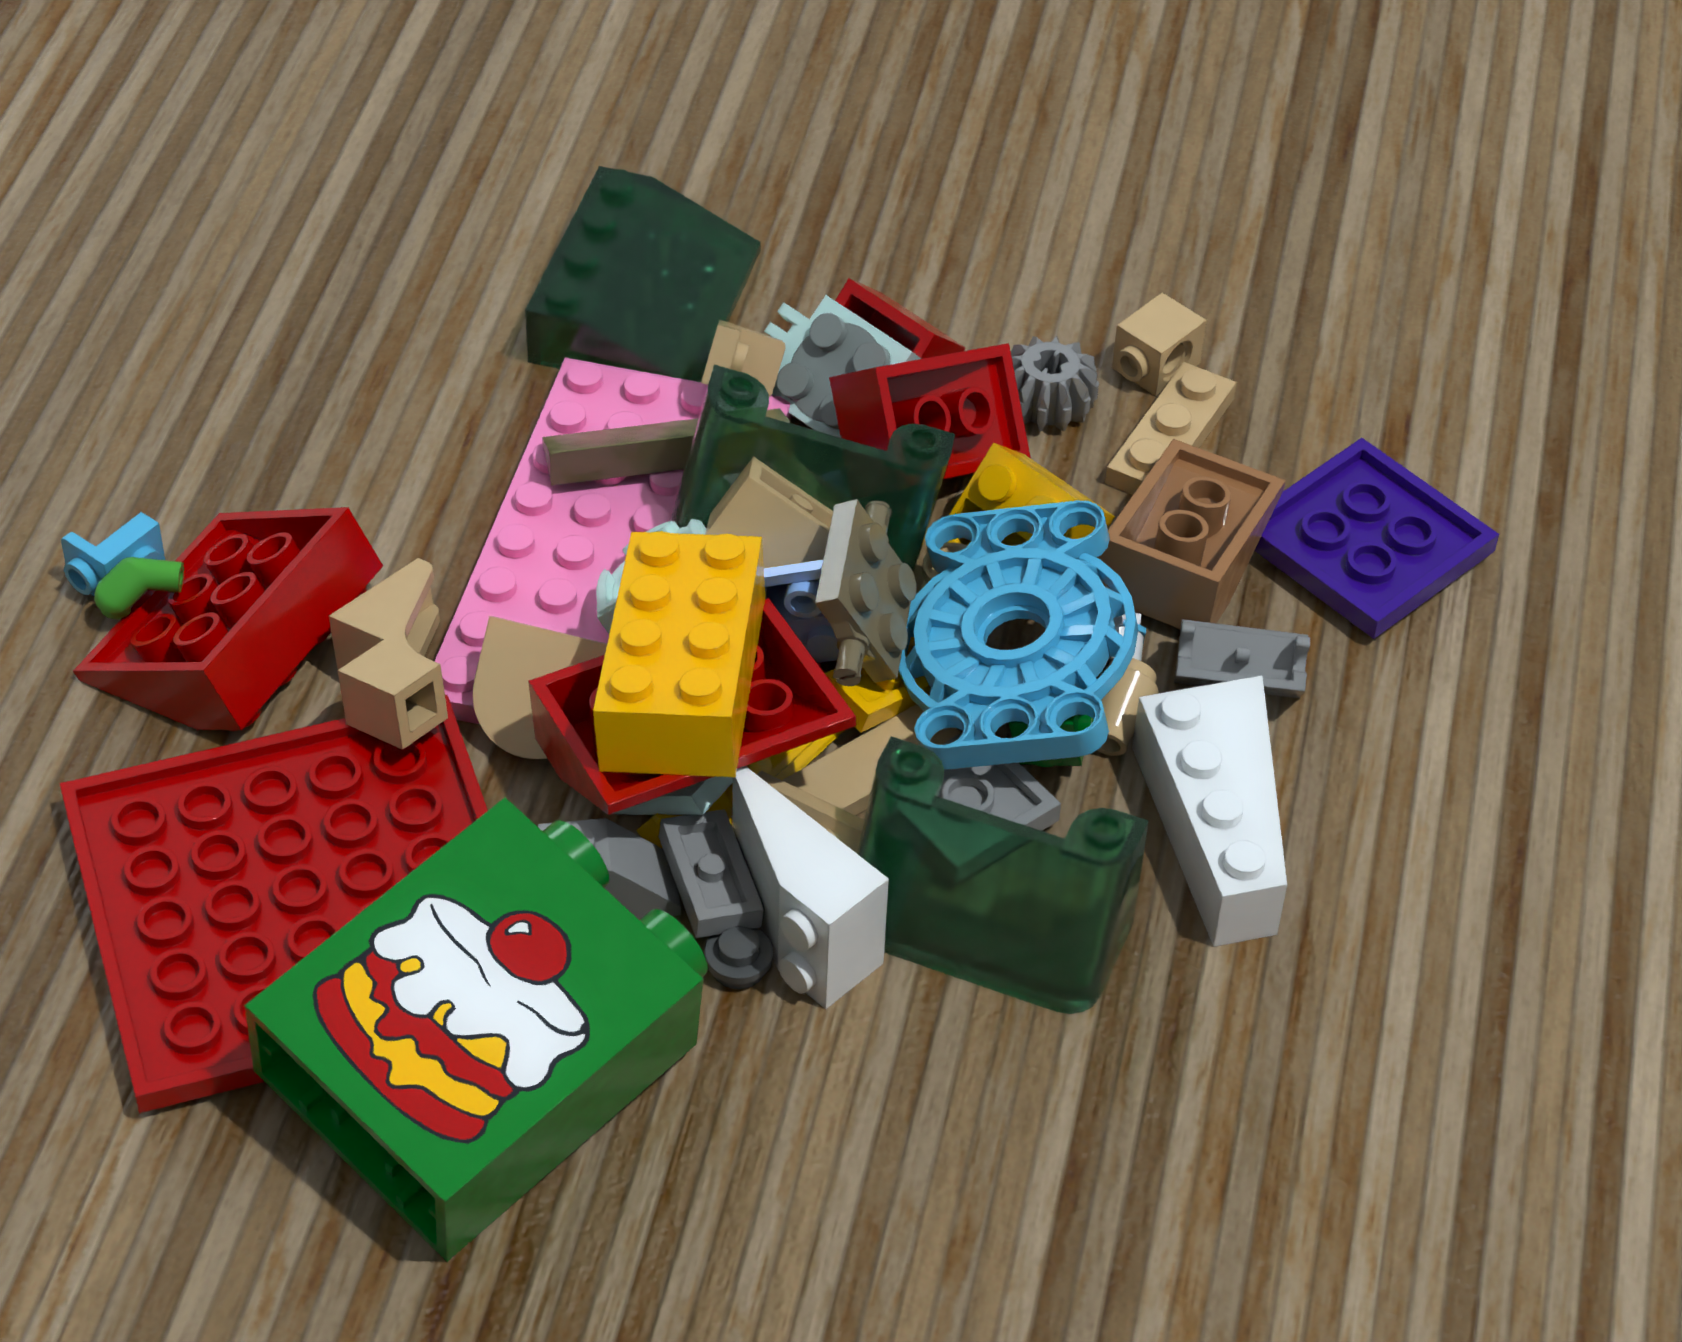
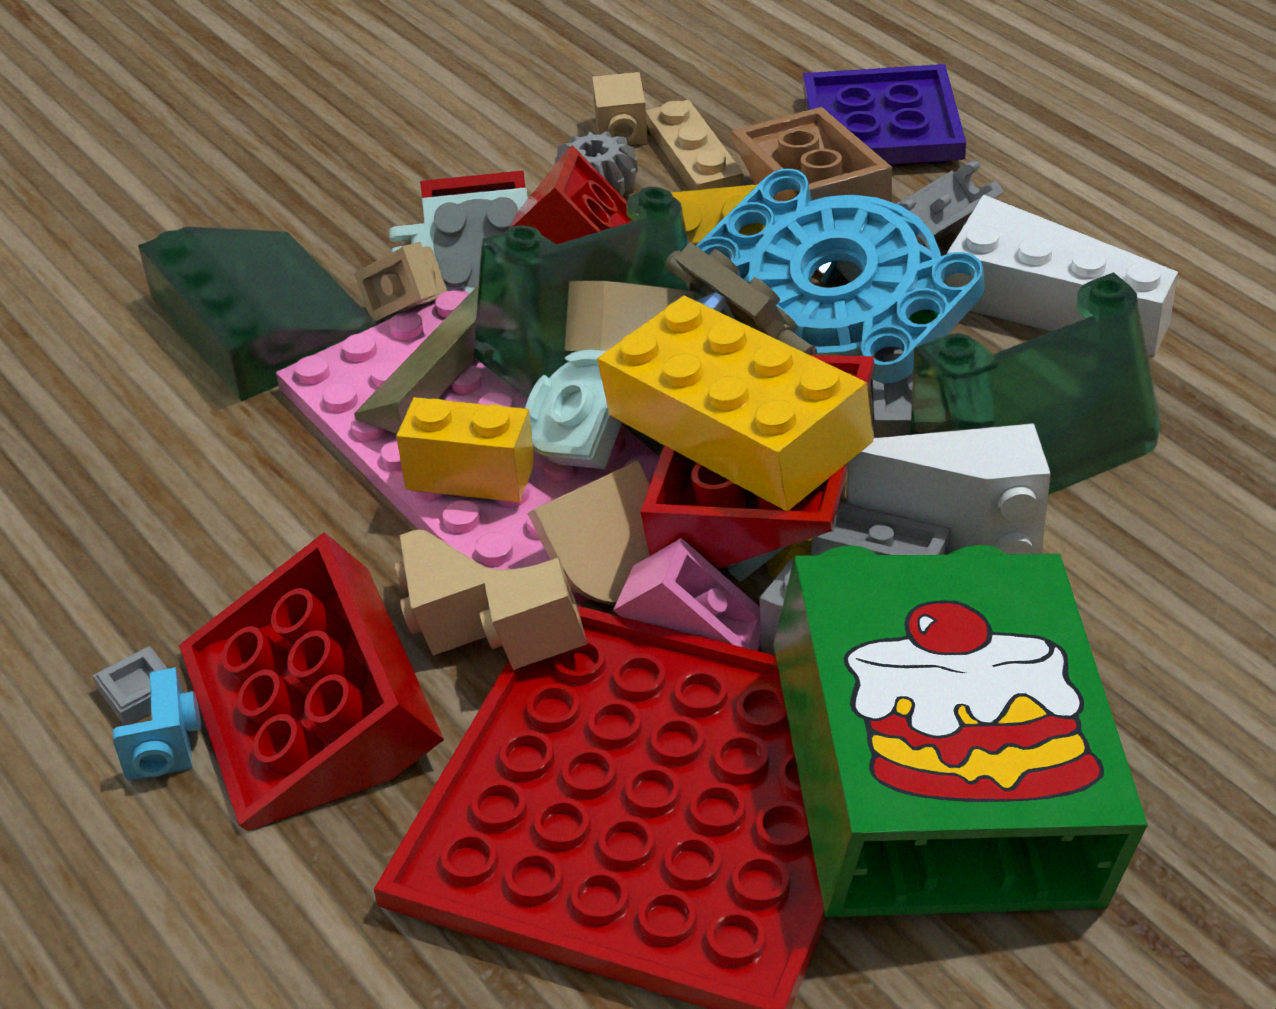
camera: 45 degrees left, 5 degrees down
(131, 579) = (209, 721): bright green arm -> none
(170, 509) = (127, 685): none -> light grey tile
(522, 771) = (690, 596): none -> bright pink slope
(545, 532) = (466, 449): none -> yellow brick

